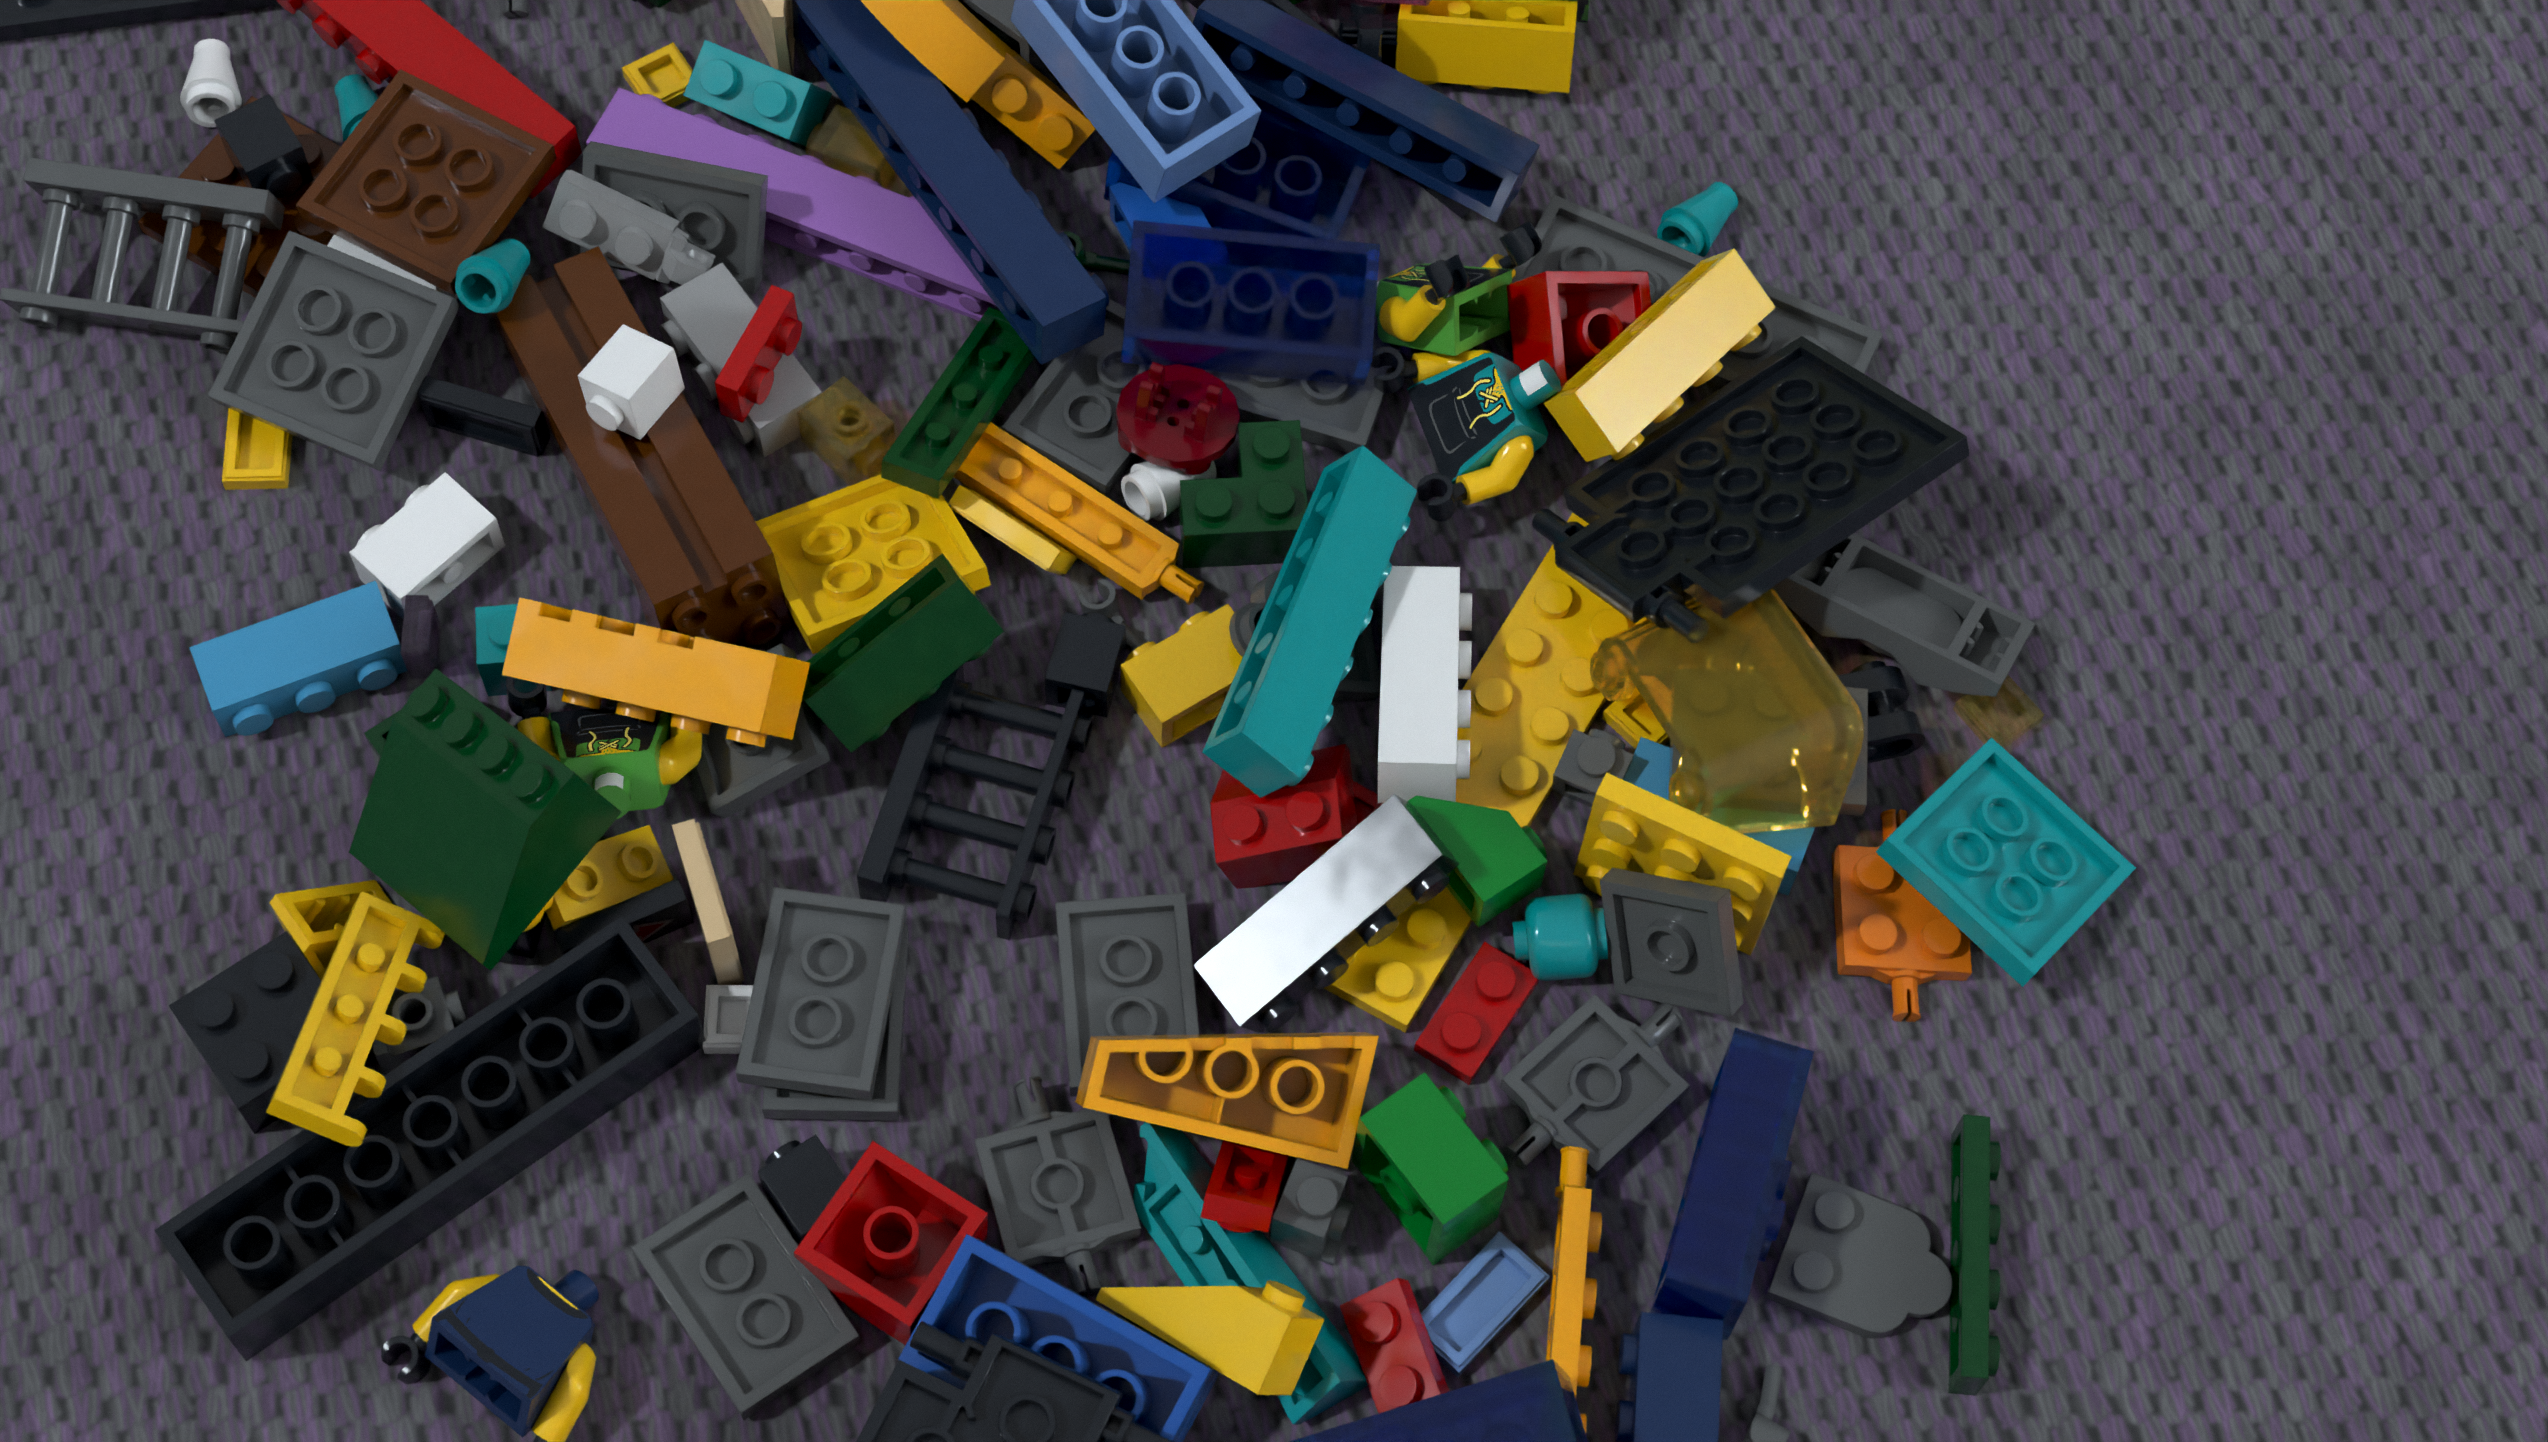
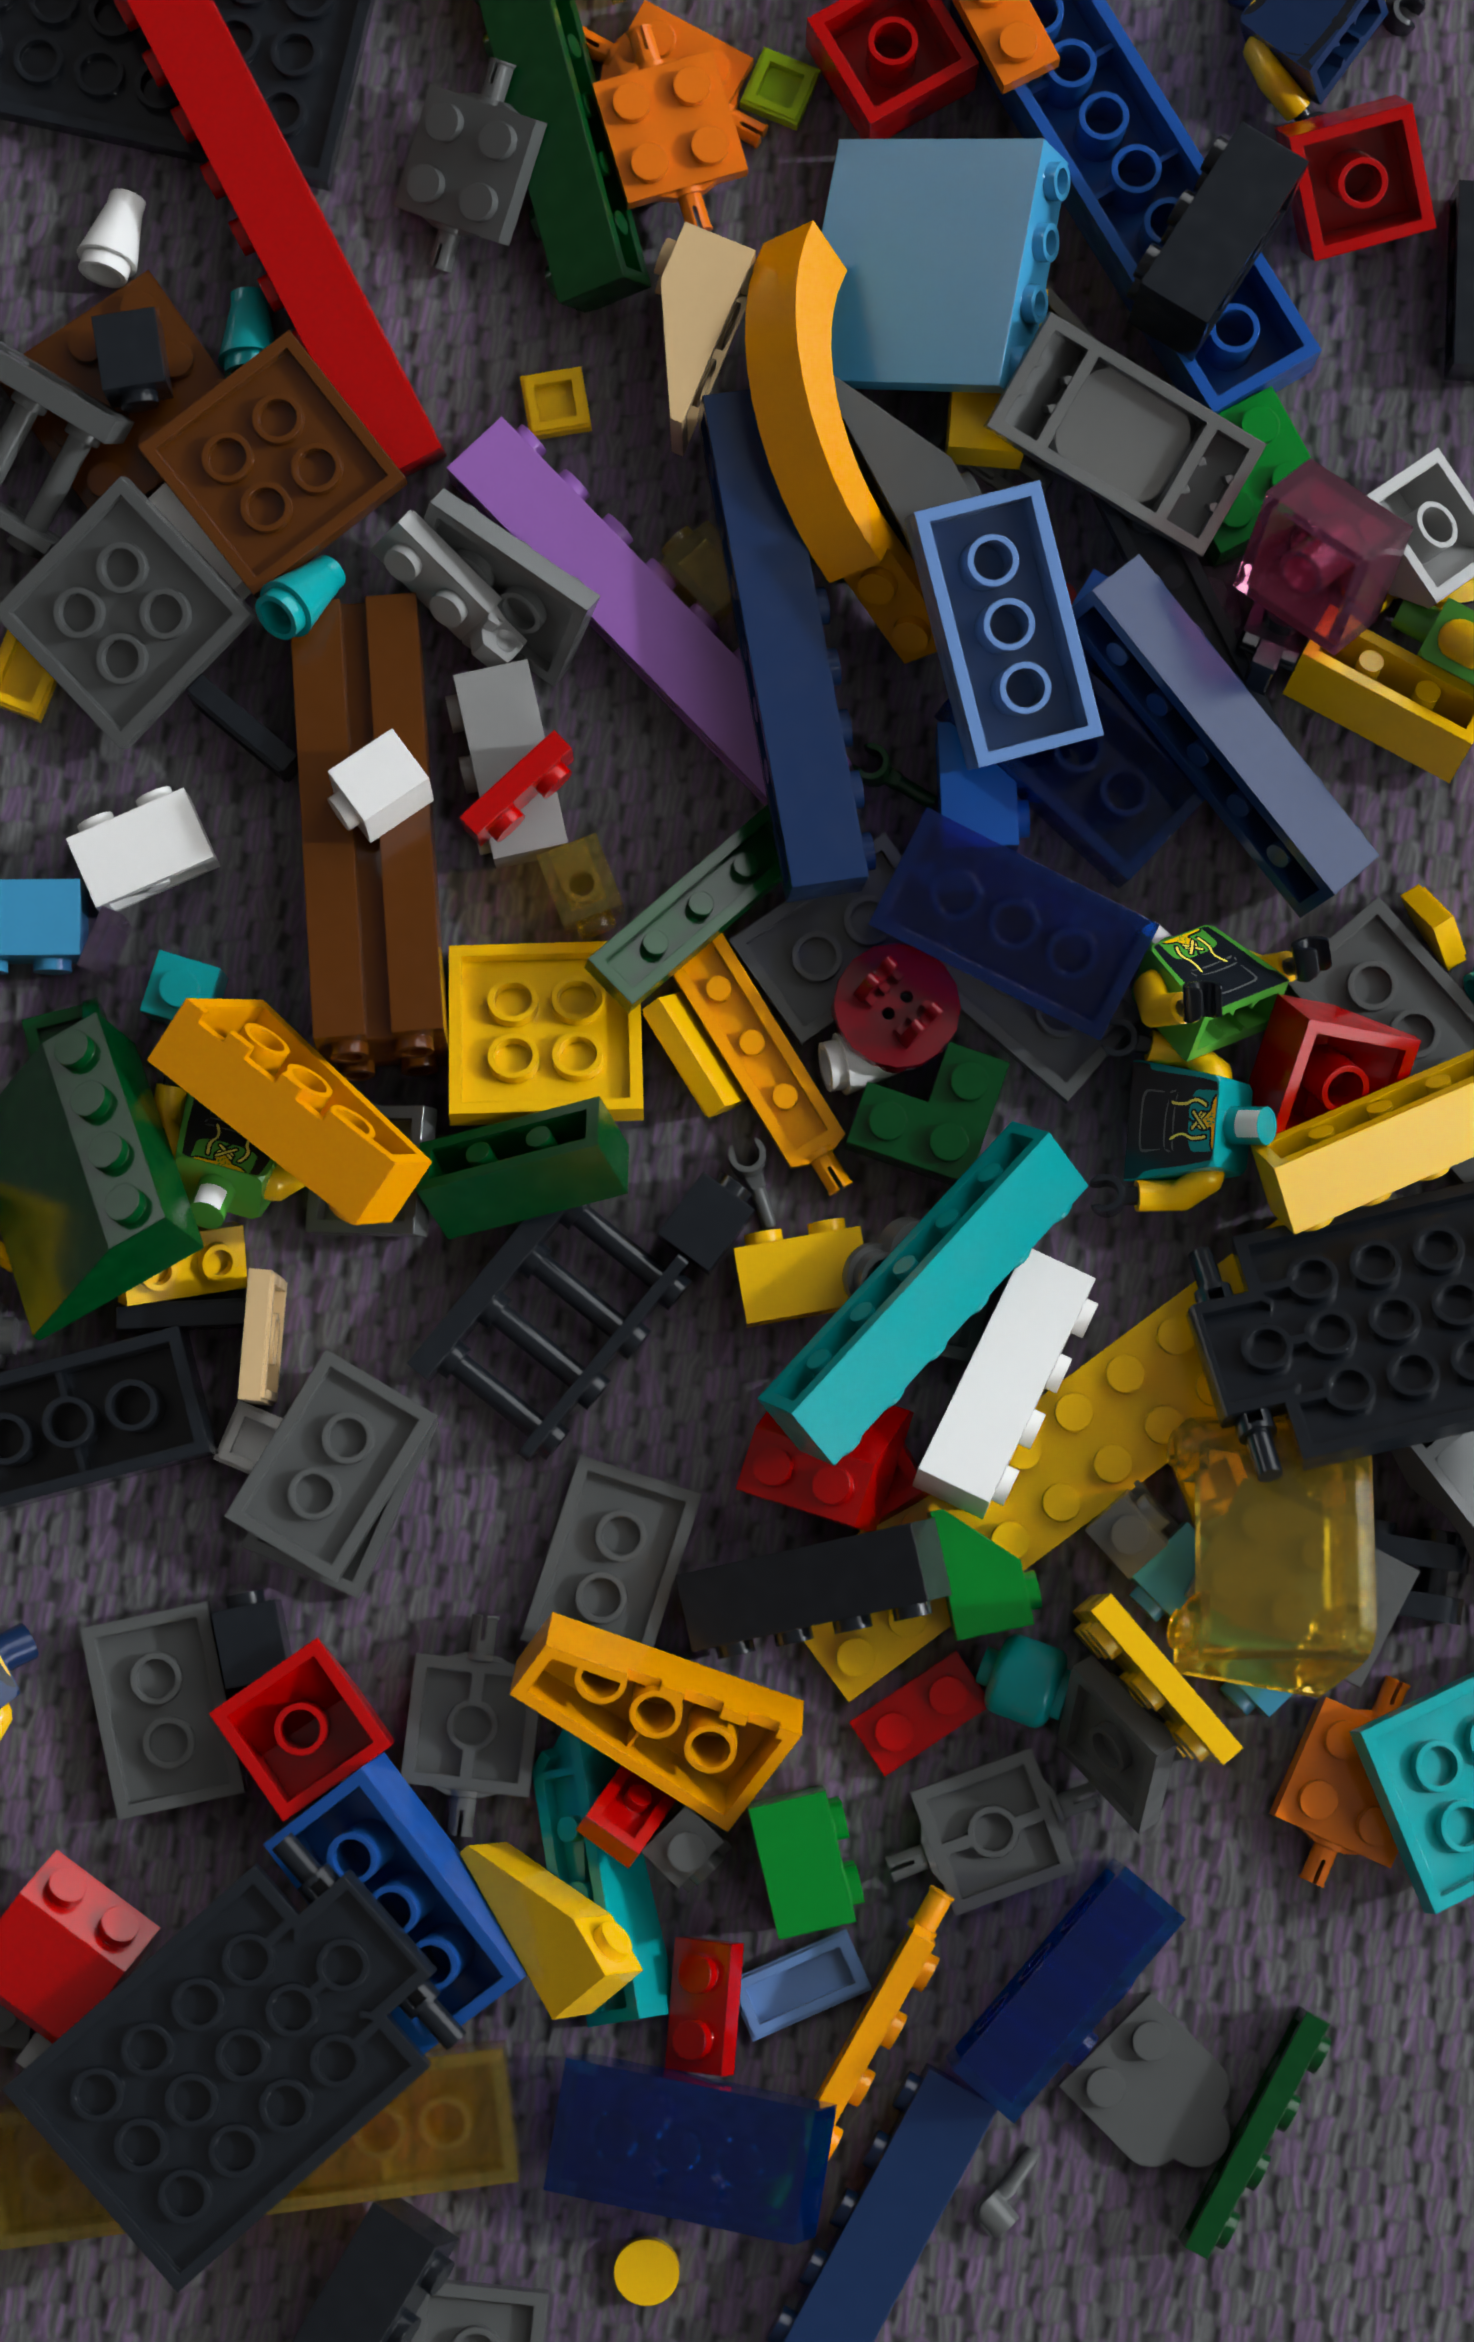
camera: 25 degrees right, 20 degrees up
(756, 93) = (636, 471): teal brick -> none
(1612, 199) = (1435, 925): none -> yellow tile

